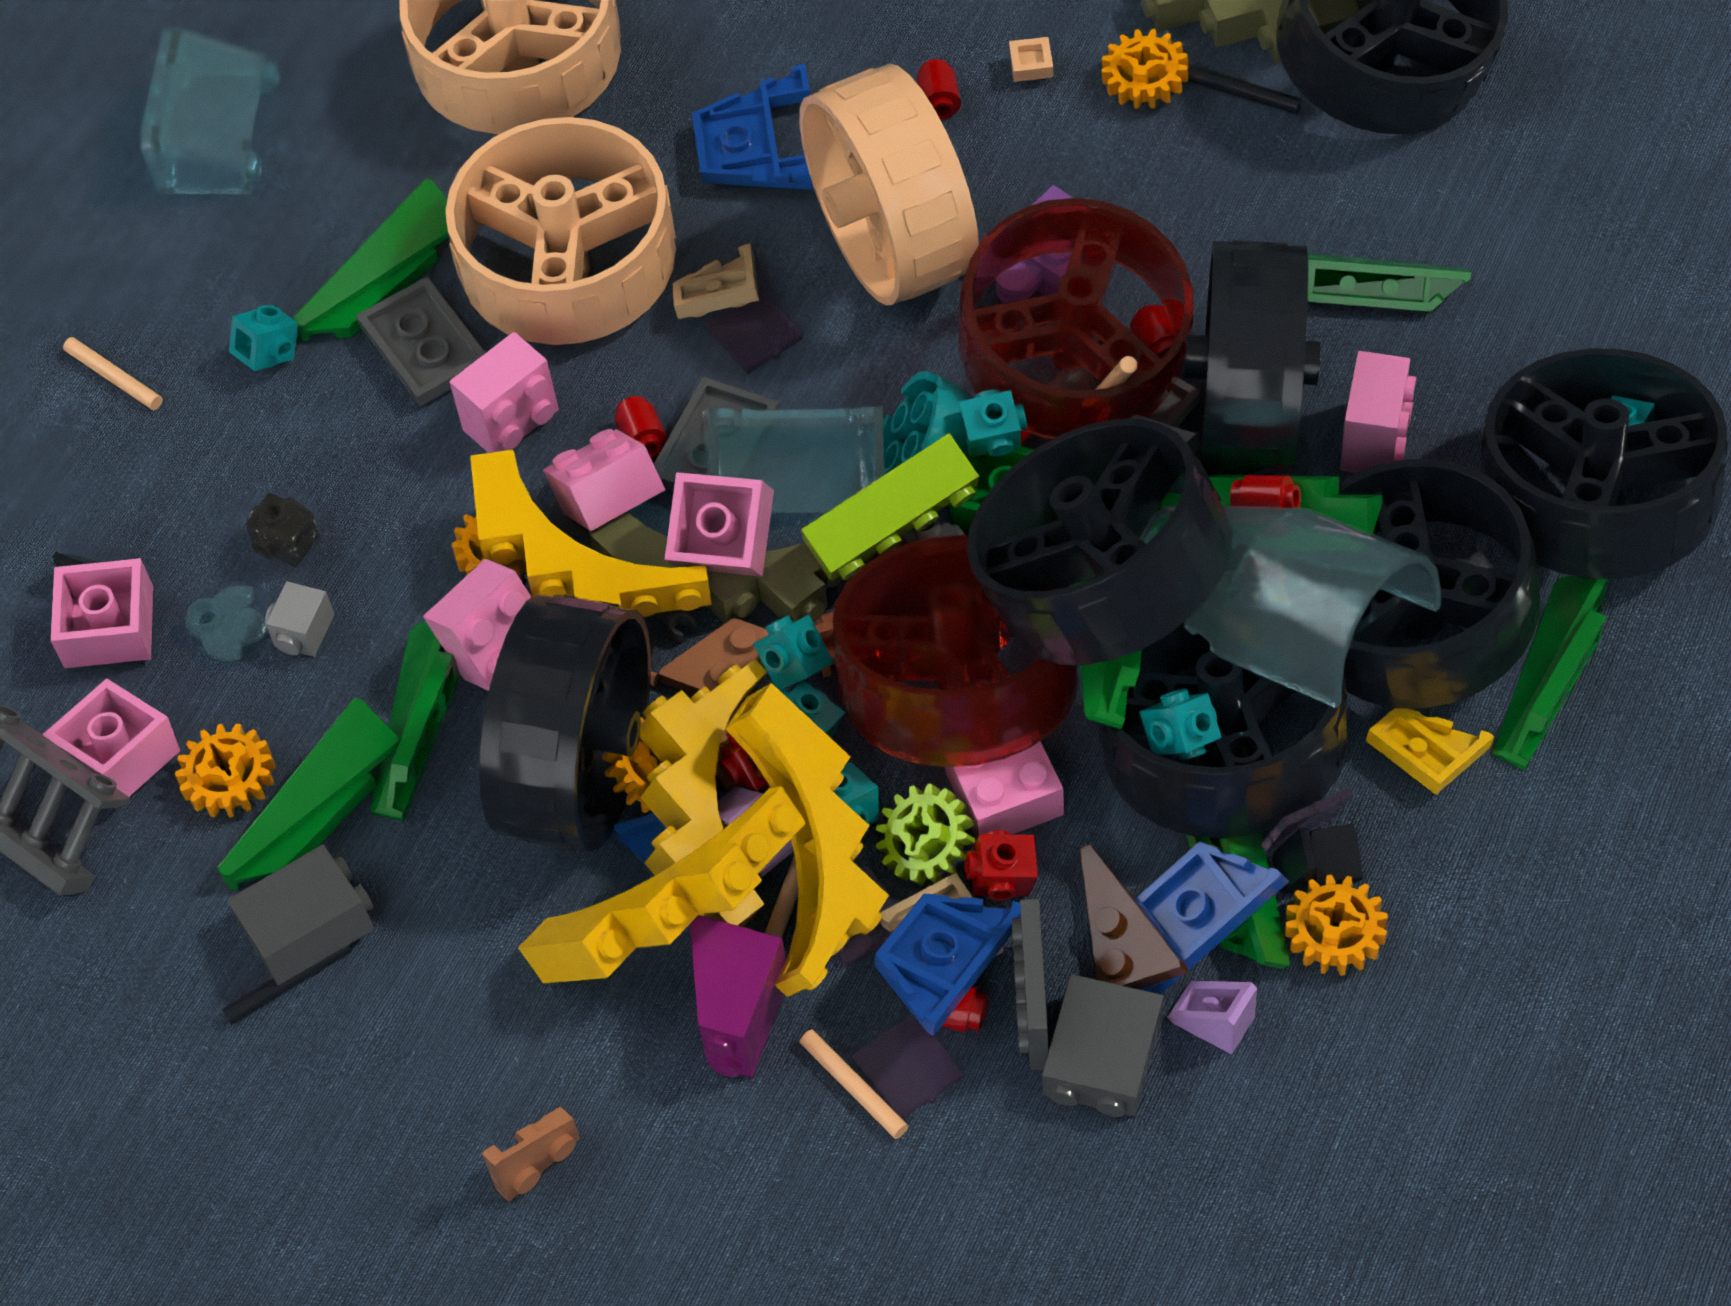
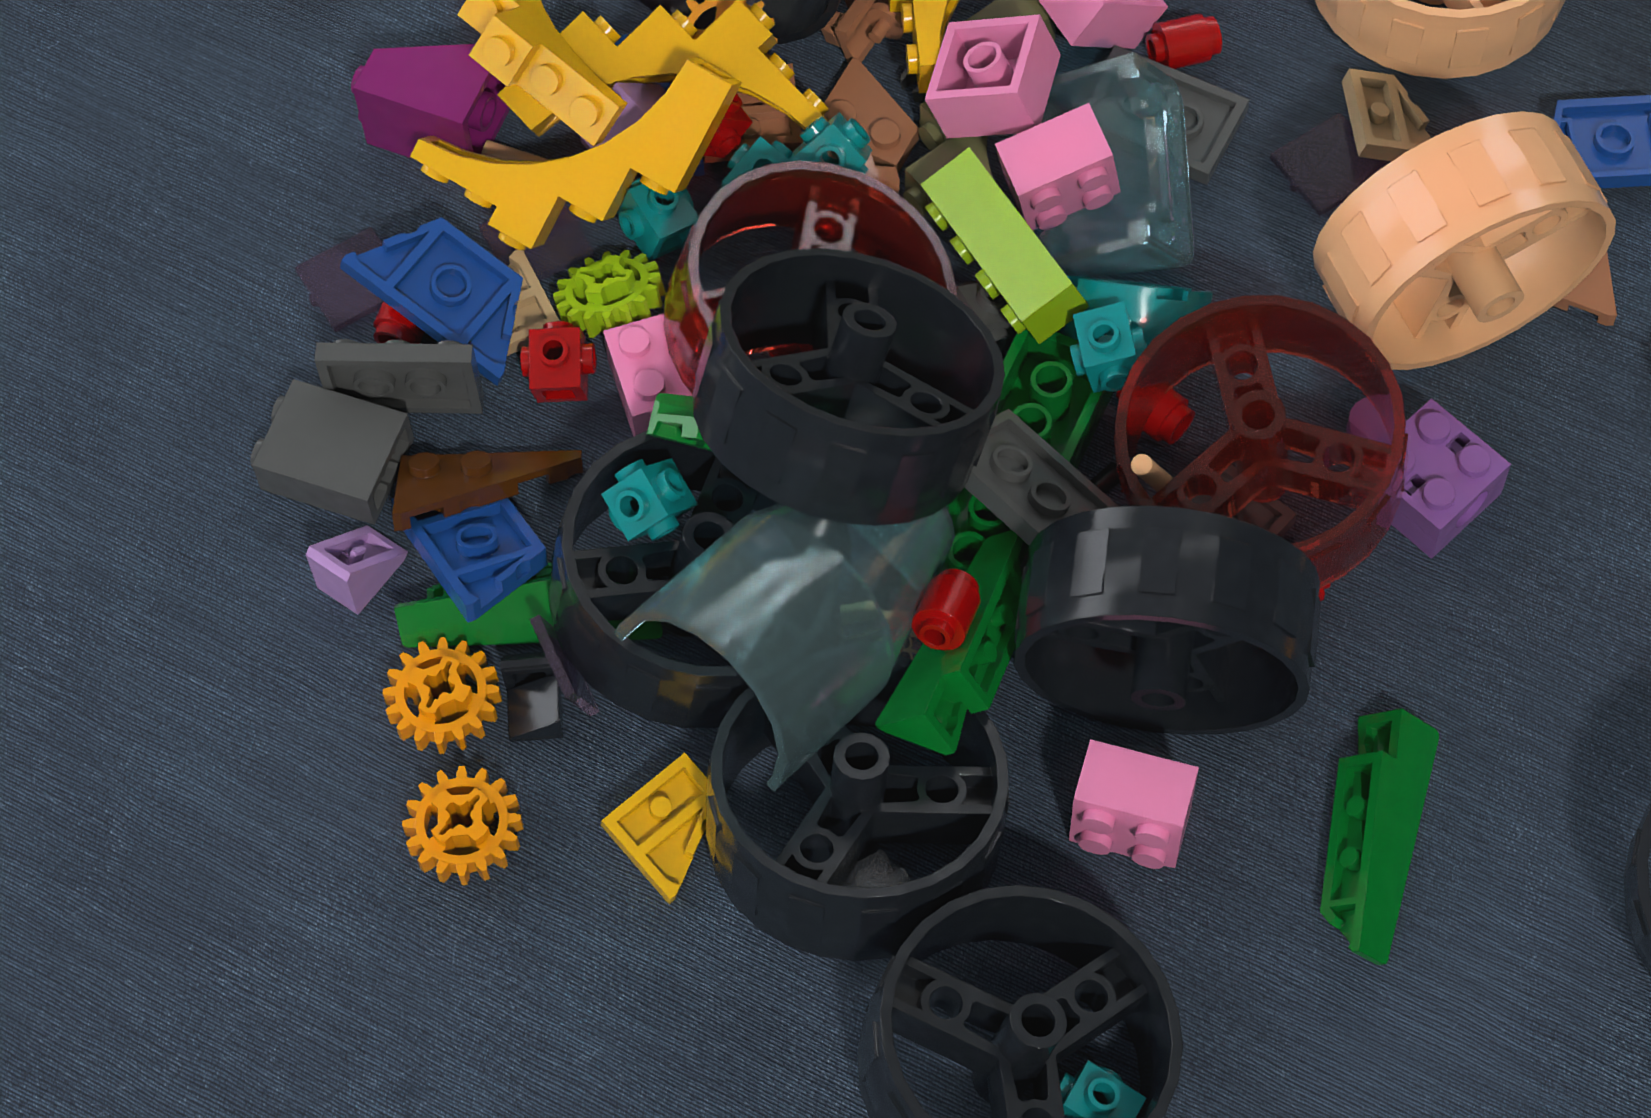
camera: 90 degrees right, 5 degrees up
(801, 477) = (1059, 168): none -> bright pink brick
(854, 1084) = (338, 227): light nougat bar -> none
(1453, 887) = (458, 847): none -> light orange gear
(1555, 661) = (763, 986): green wedge -> none

